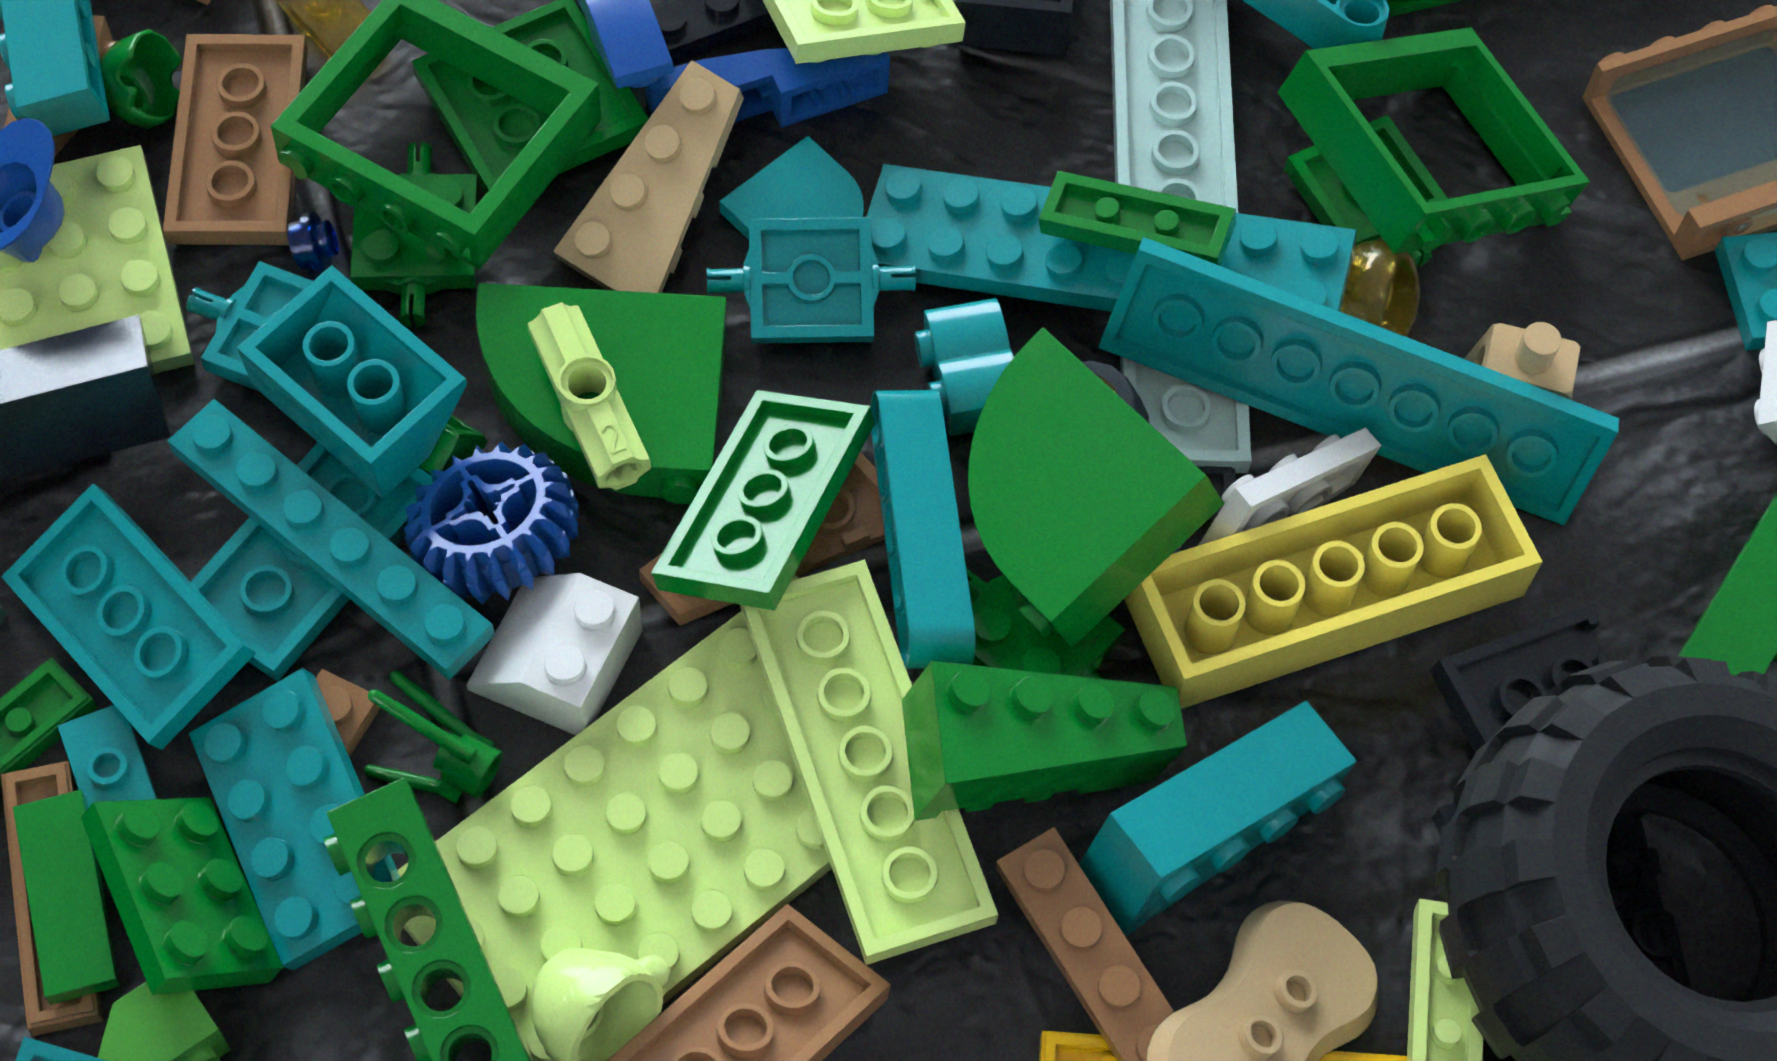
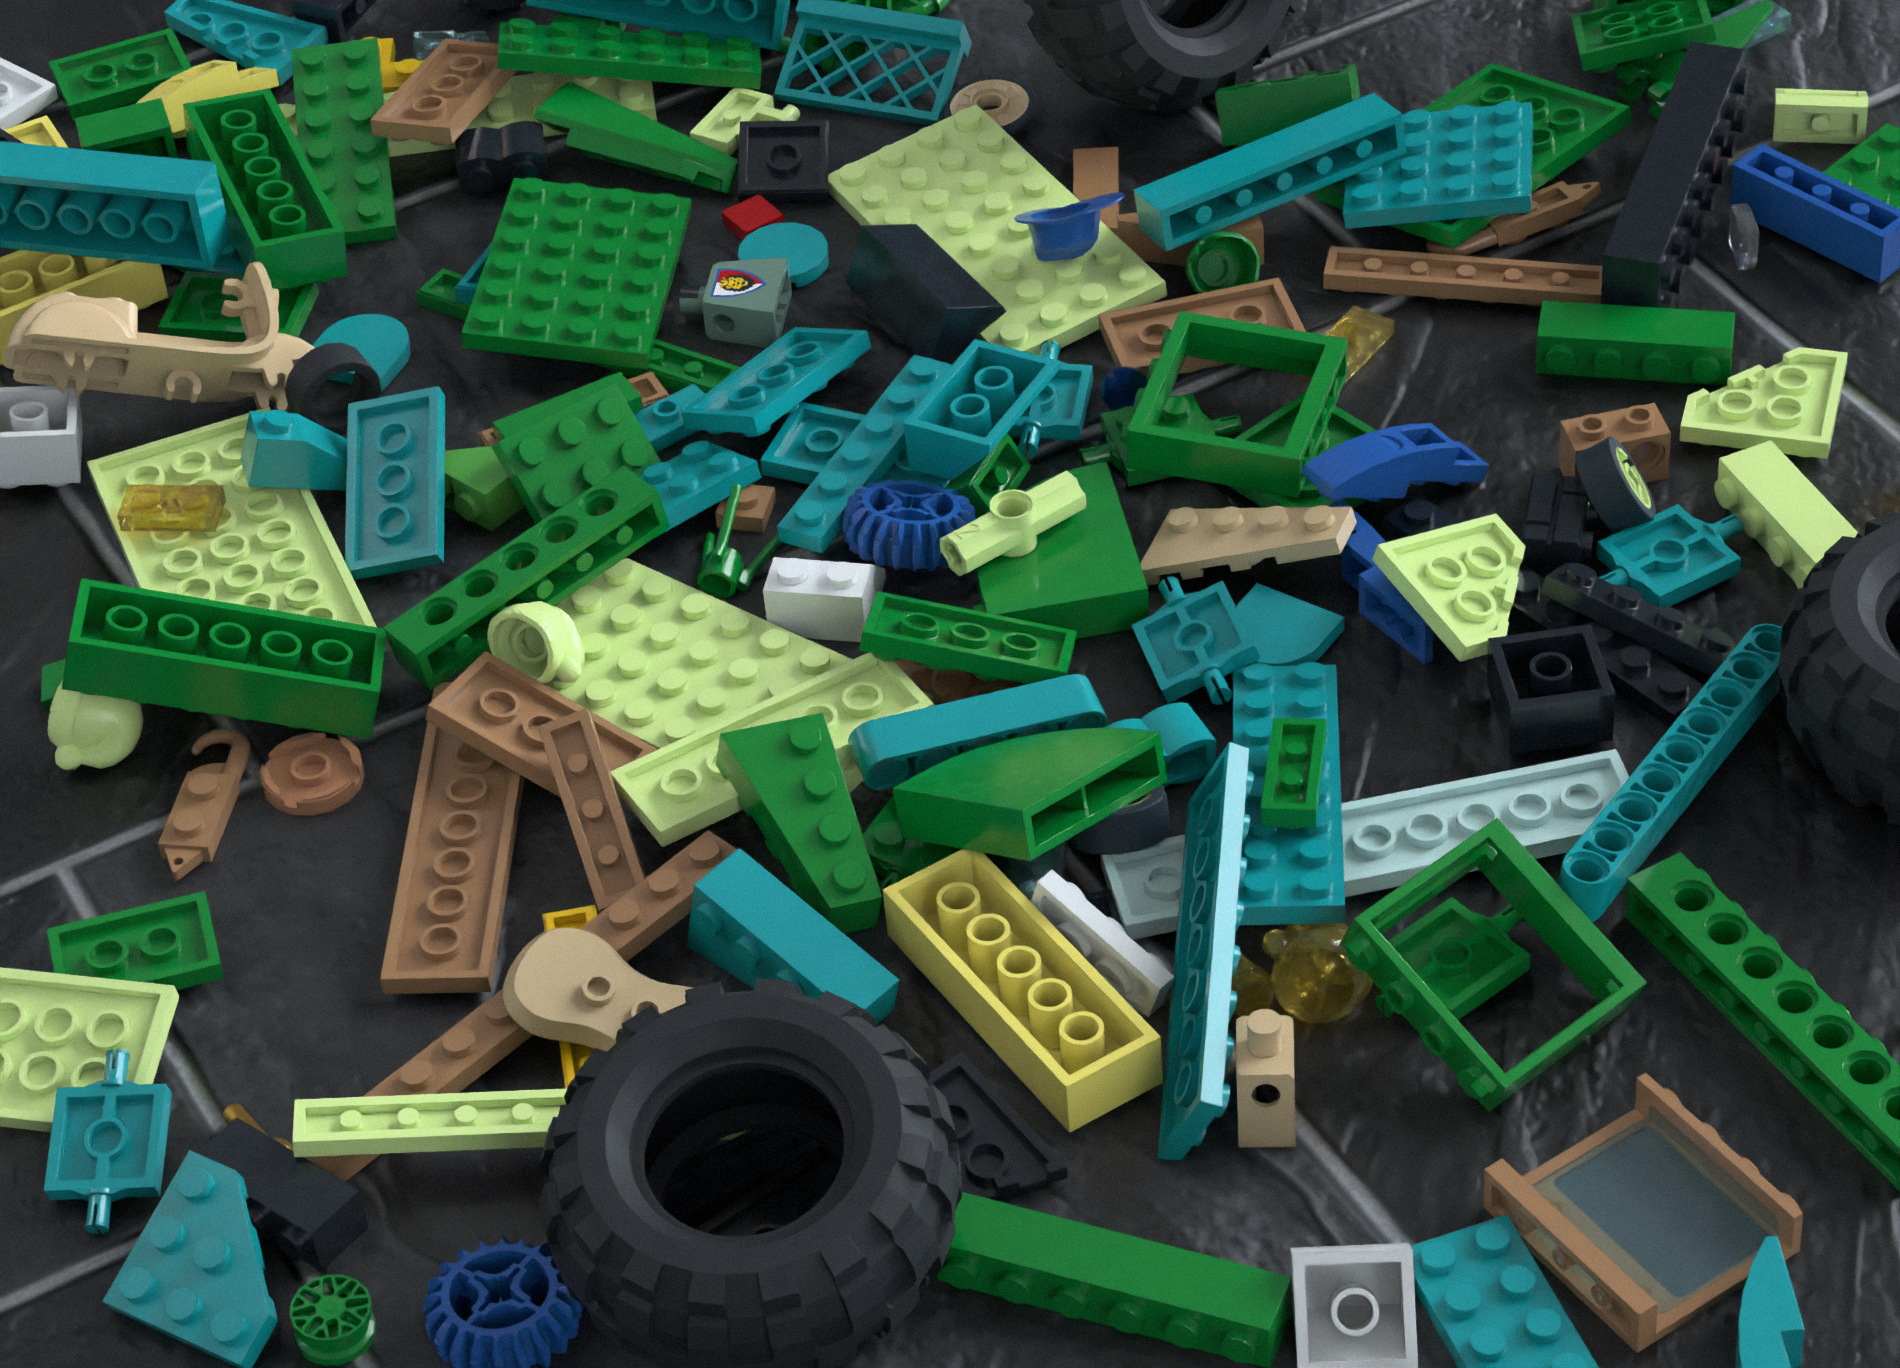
camera: 85 degrees right, 20 degrees down
(919, 990) = (592, 806): none -> medium nougat plate

